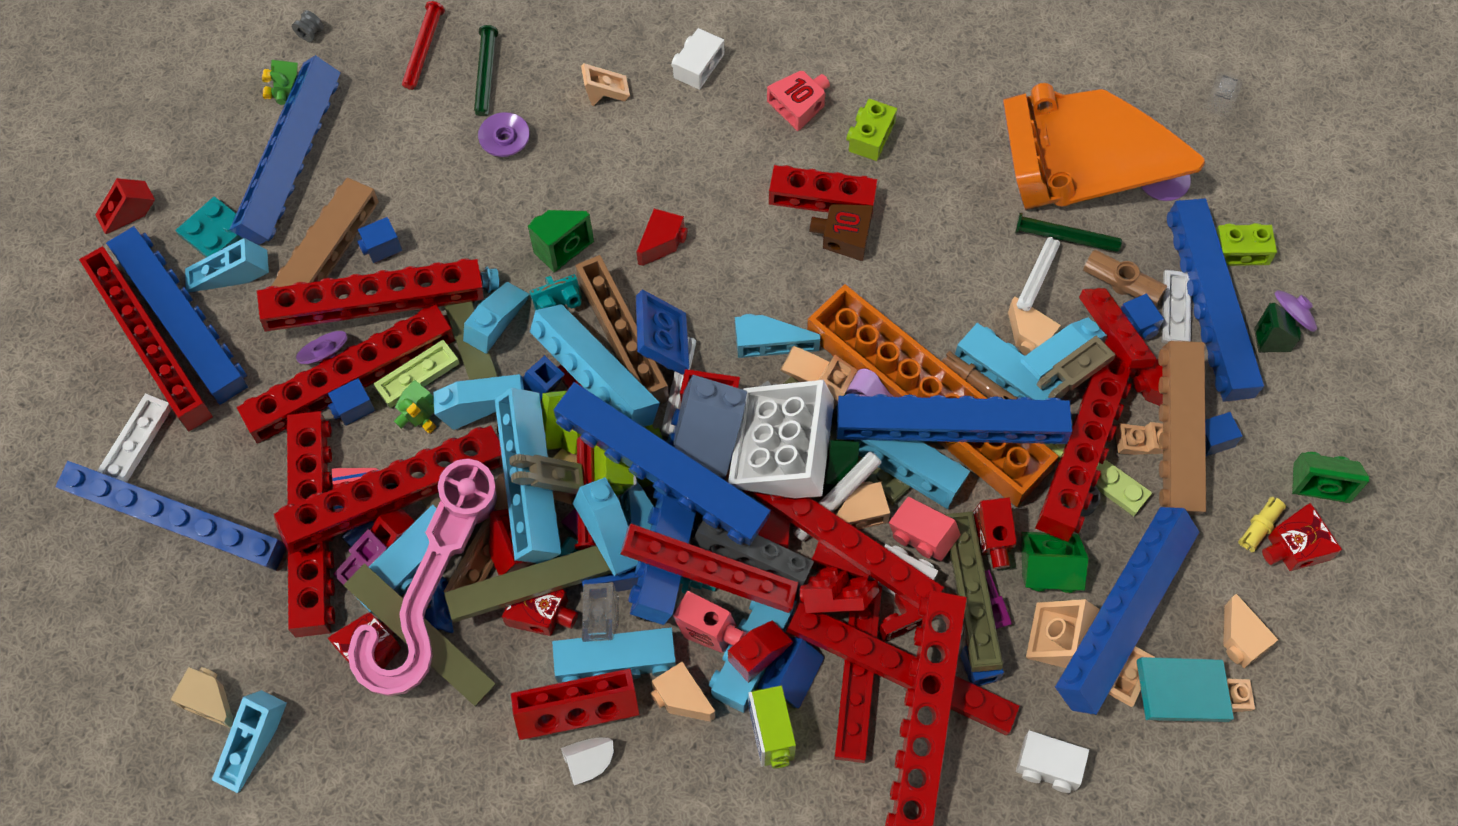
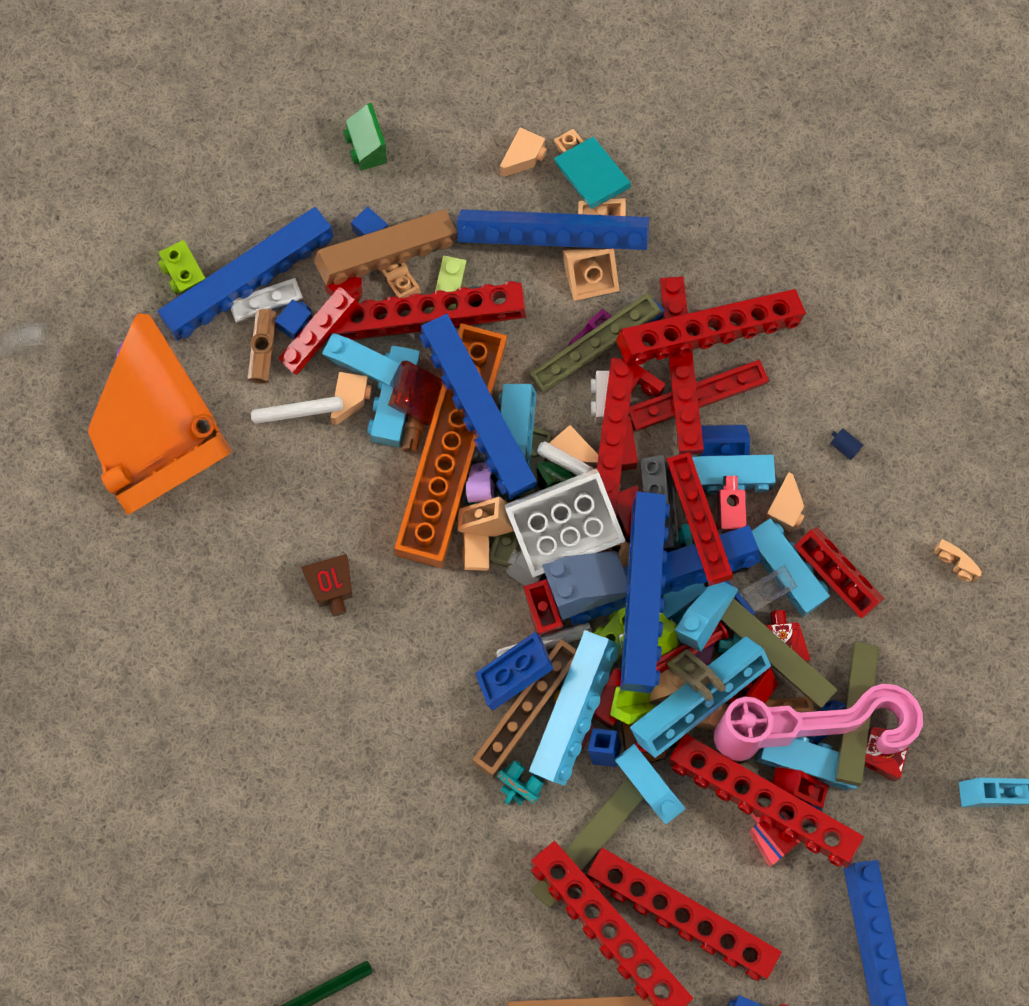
camera: 125 degrees left, 10 degrees up
(204, 696) = (991, 845): tan slope -> none
(318, 619) = (750, 918): red brick -> none
(322, 348) = (675, 958): medium lavender dish -> none
(350, 402) = (707, 893): blue brick -> none
(365, 551) = (827, 795): magenta slope -> none
(379, 240) = (551, 967): blue brick -> none
(416, 406) = (682, 836): bright green piece -> none
(422, 368) = (650, 858): yellowish green plate -> none
(490, 279) = (532, 849): medium azure plate -> none
(493, 316) = (565, 821): medium azure slope -> none
(501, 126) = (378, 915): medium lavender dish -> none
(560, 236) = (469, 809): green slope -> none
(588, 758) = (866, 547): white brick -> none
(604, 83) = (286, 865): light nougat slope -> none
(661, 236) = (417, 730): red slope -> none
(698, 58) = (214, 800): white brick -> none
(715, 804) = (846, 443): none -> dark blue piece
(758, 649) = (731, 459): red slope -> none
(767, 336) = (467, 599): medium azure slope -> none
(772, 727) = (777, 427): lime piece -> none
(798, 97) = (212, 688): coral torso -> none
(811, 182) = (294, 582): red brick -> none
(833, 592) = (658, 426): red plate -> none
(872, 129) = (215, 610): lime brick -> none
(924, 529) = (568, 396): coral brick -> none
(991, 519) = (539, 347): red torso -> none
(1001, 374) = (415, 392): none -> clear red plate
(1052, 762) = (688, 240): white brick -> none
(1053, 562) = (543, 300): green slope -> none
(1068, 234) = (239, 409): dark green axle -> none
(1077, 367) = (377, 338): dark tan hinge -> none
(1262, 524) = (427, 172): light yellow pin -> none
(1276, 330) = (257, 216): dark green slope -> none
(1298, 308) = (229, 208): medium lavender dish -> none
(1301, 541) = (428, 141): red torso -> none

